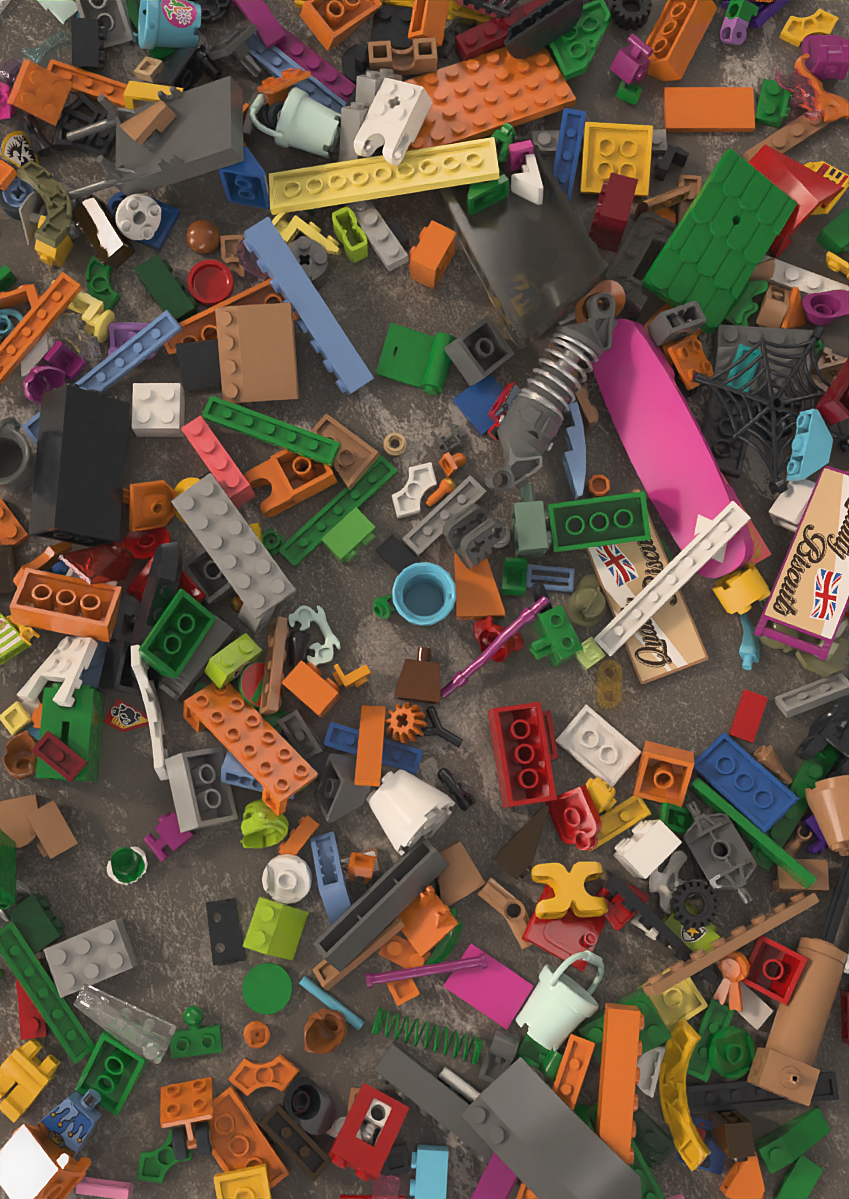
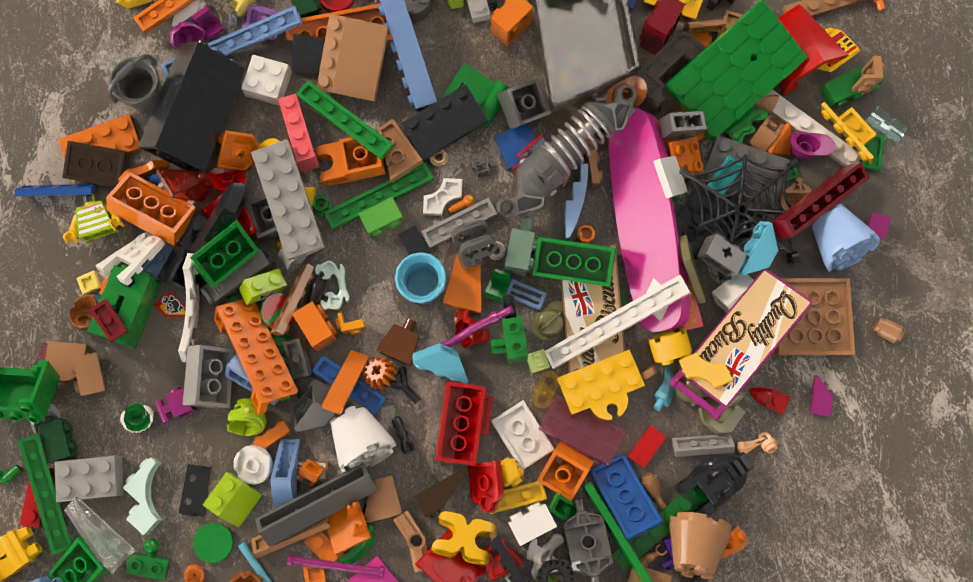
camera: 20 degrees right, 0 degrees up
(173, 981) = (138, 485): none -> light aqua arch
(382, 608) = (389, 279): green plate -> none
(391, 400) = (444, 122): none -> black slope
(452, 463) = (478, 184): orange piece -> none
(477, 687) = (442, 362): none -> medium azure slope
(667, 719) = (582, 431): none -> clear pink plate
(675, 659) = (602, 385): none -> yellow plate
(683, 388) = (669, 176): none -> white tile
(722, 628) = (648, 372): none -> medium nougat tile
(740, 490) = (692, 269): none -> olive tile
(770, 464) = (721, 255): none -> brick
(804, 606) = (696, 367): none -> yellow tile

